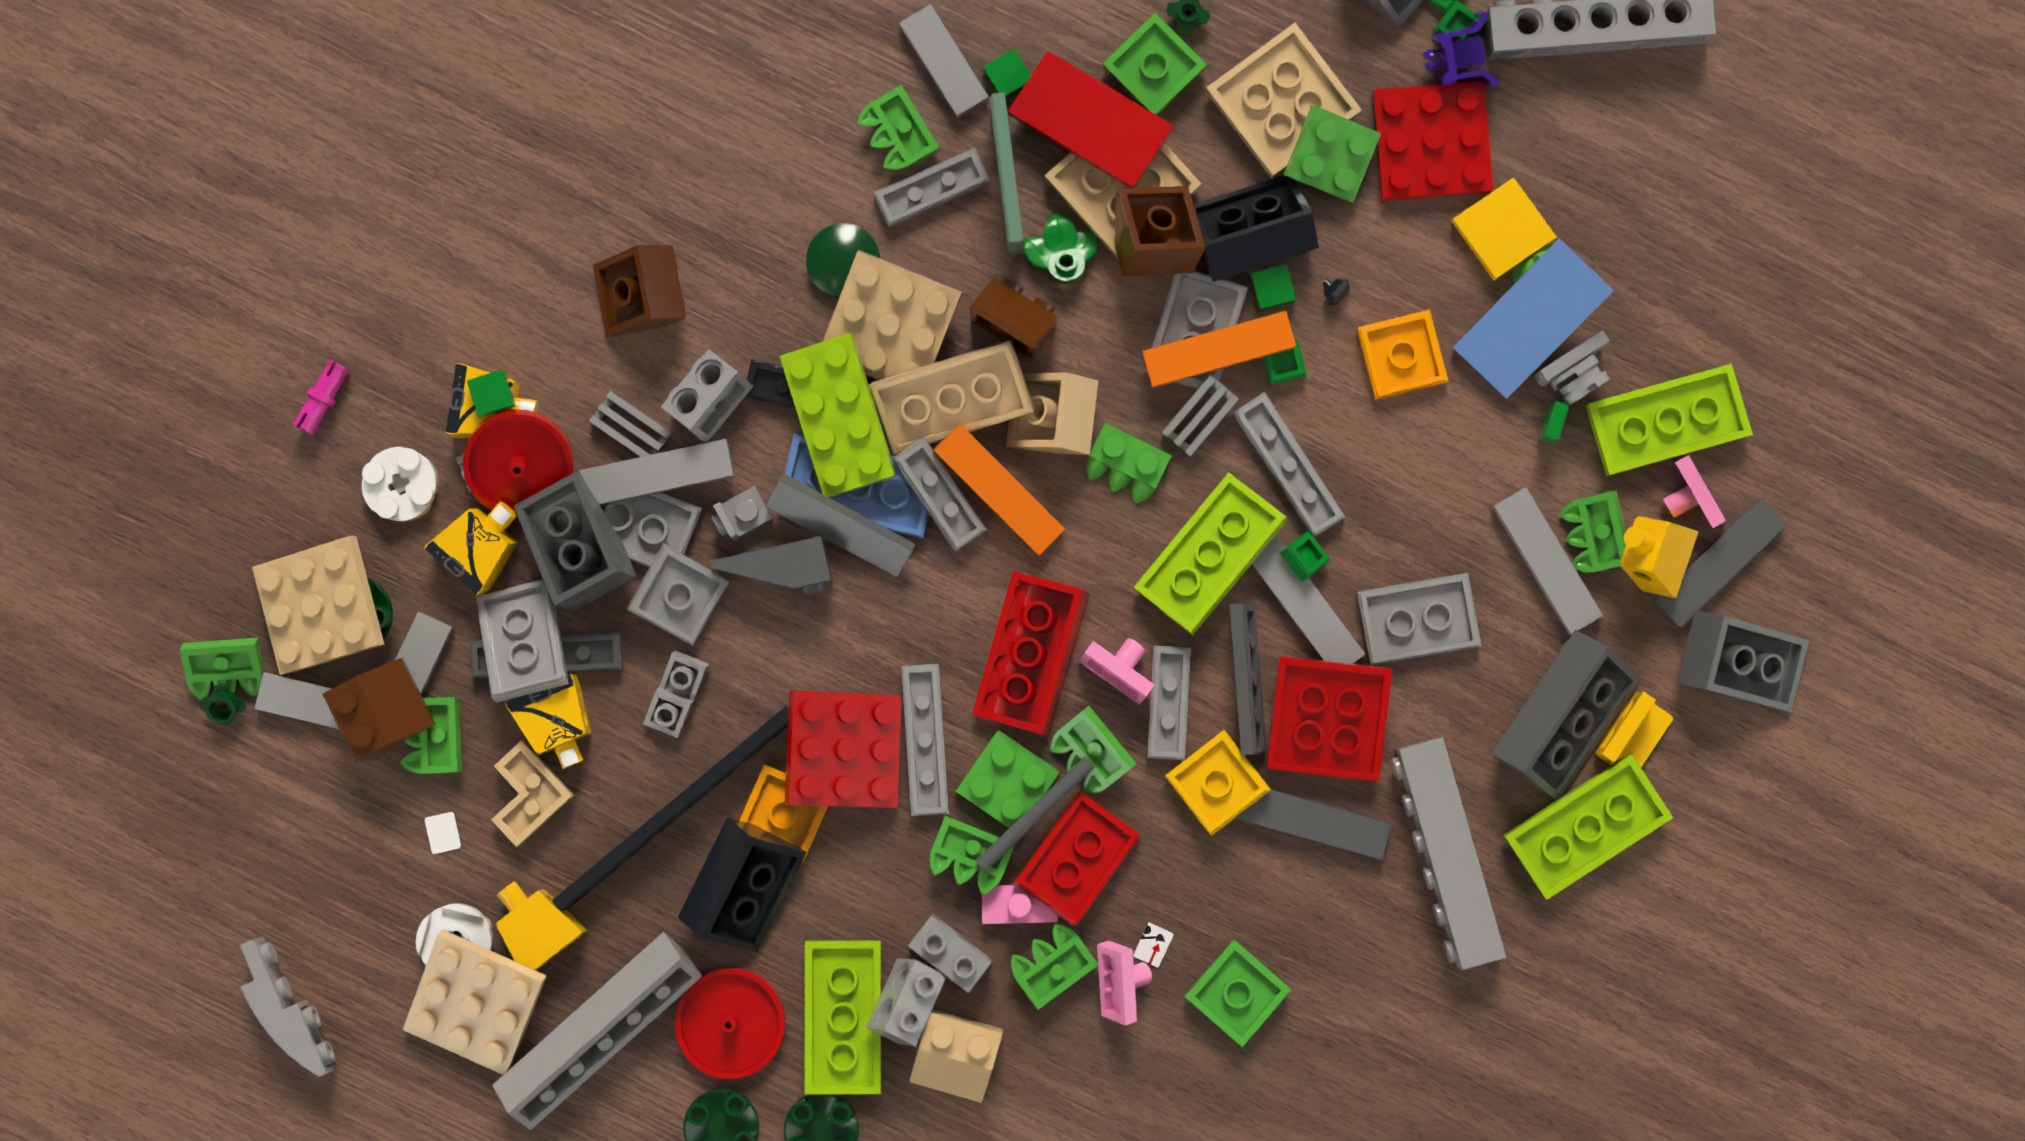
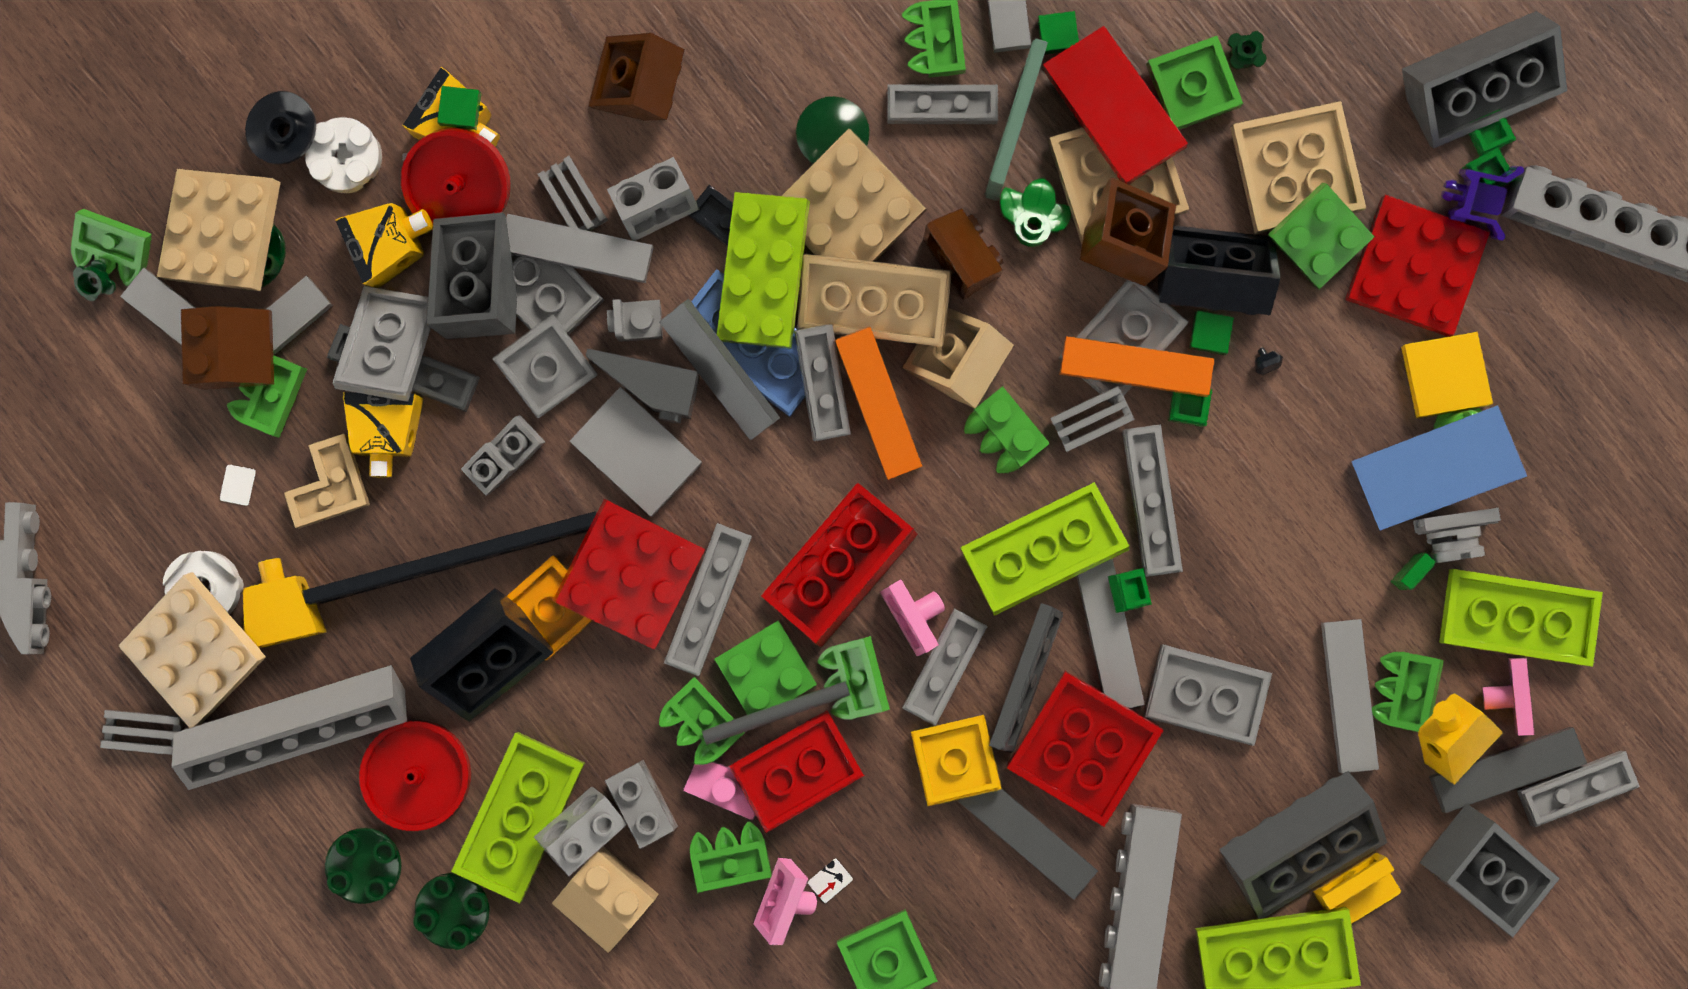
camera: 25 degrees right, 0 degrees up
(316, 483) = (270, 118): none -> black dish
(321, 397) = (308, 45): dark pink pin -> none
(430, 1109) = (111, 729): none -> light grey tile
(797, 635) = (636, 452): none -> light grey tile
(1402, 355) = (1301, 447): light orange tile -> none
(1790, 551) = (1578, 788): none -> light grey tile

